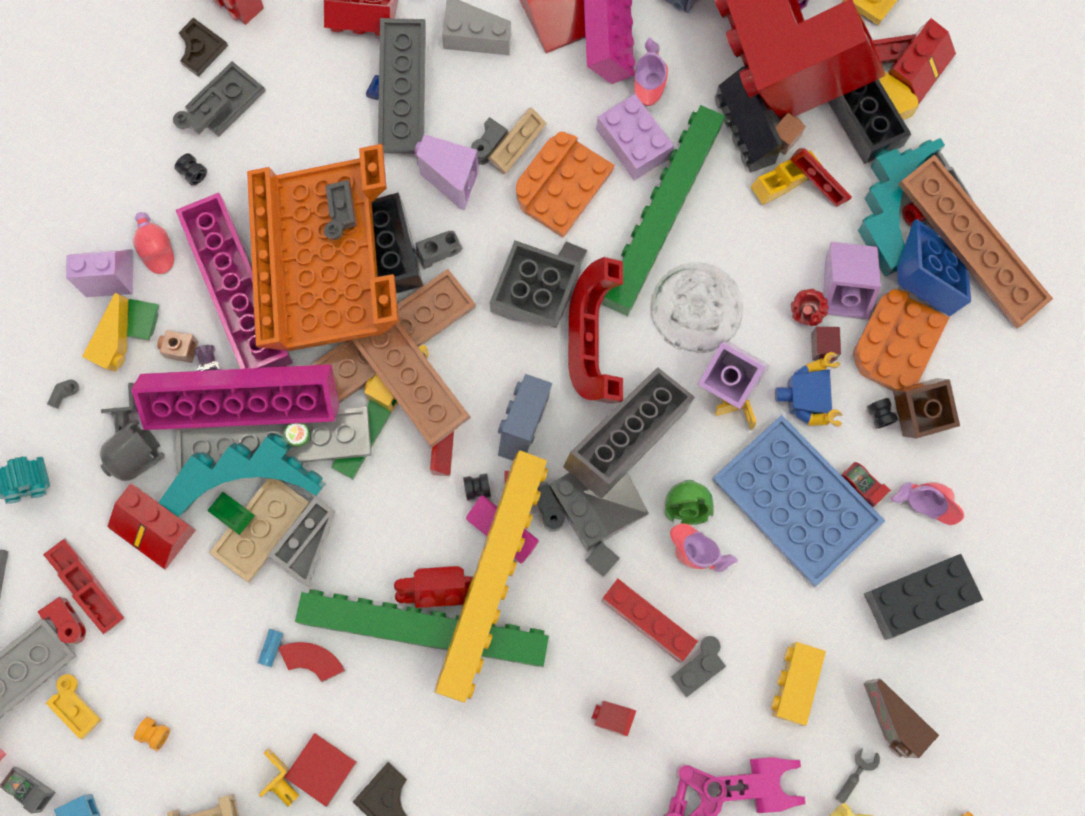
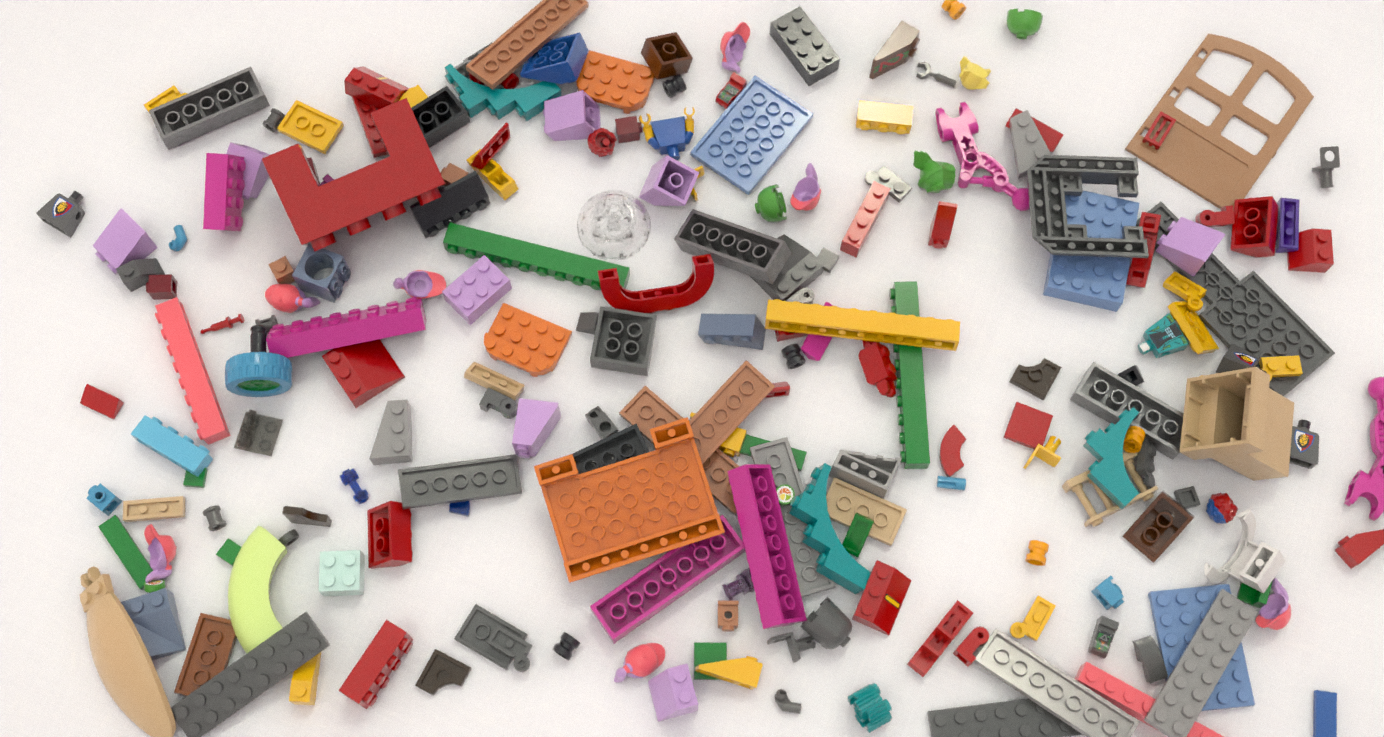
camera: 100 degrees left, 5 degrees down
(340, 209) = (593, 492): dark grey hinge -> none
(697, 730) = (934, 175): none -> bright green helmet

